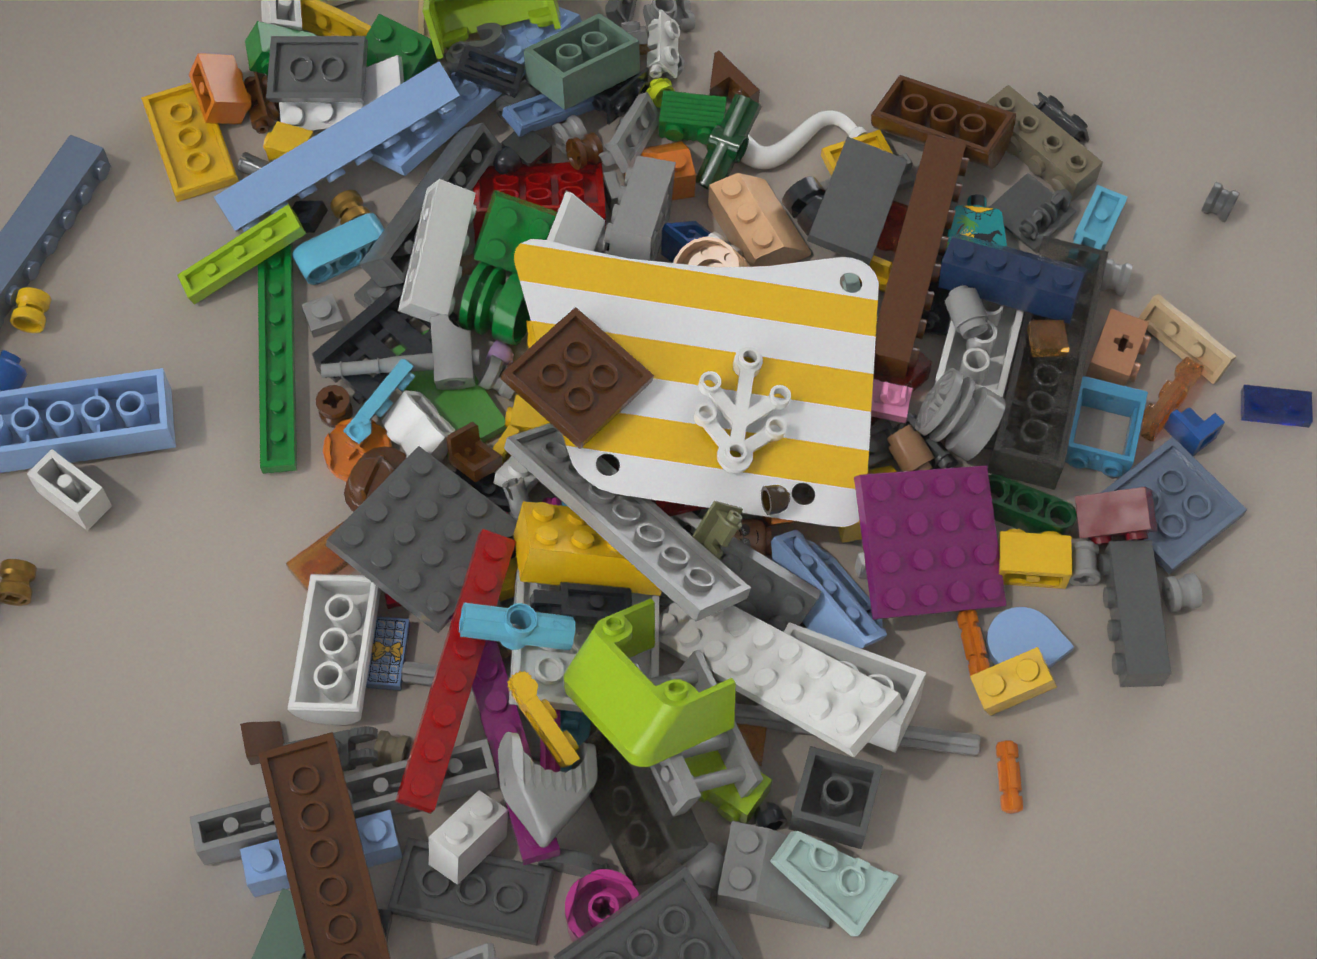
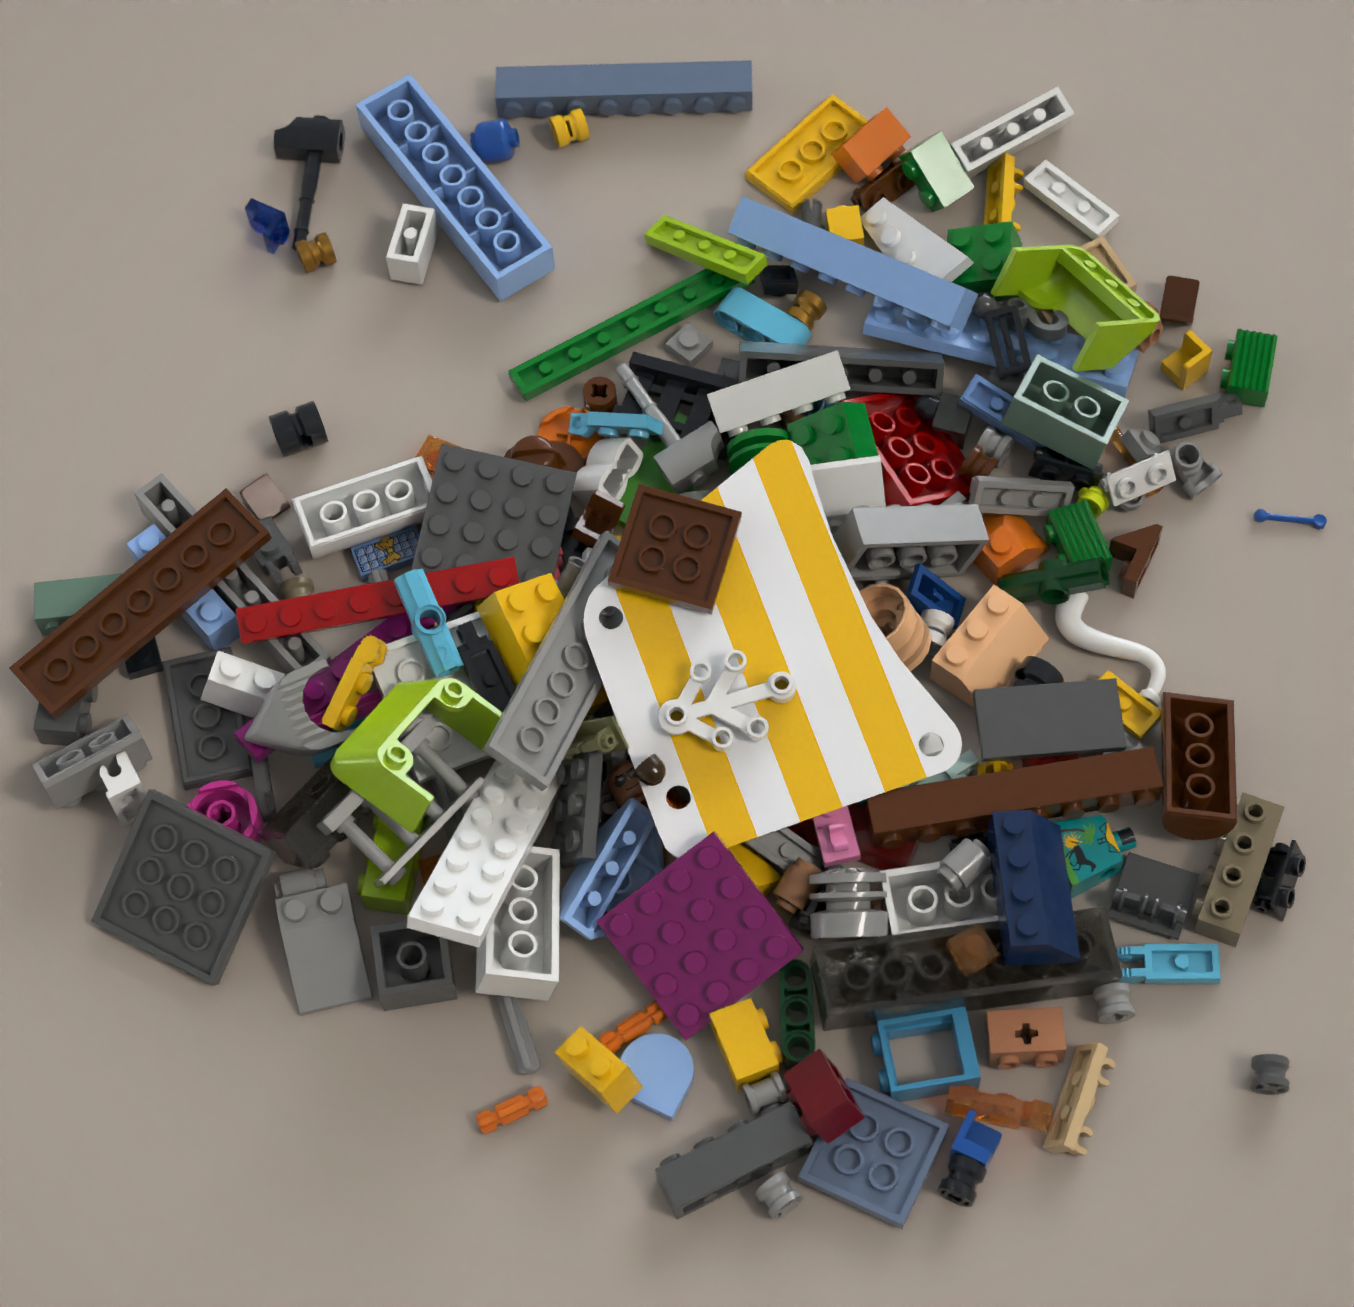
camera: 70 degrees right, 0 degrees up
(207, 681) = (298, 429): none -> black wheel
(317, 69) = (917, 203): dark grey plate -> none
(770, 818) = (375, 917): black hinge -> none
(837, 883) = (335, 993): light aqua wing -> none
(1223, 450) = (962, 1181): none -> black wheel
(1276, 406) = (1050, 1219): clear blue plate -> none

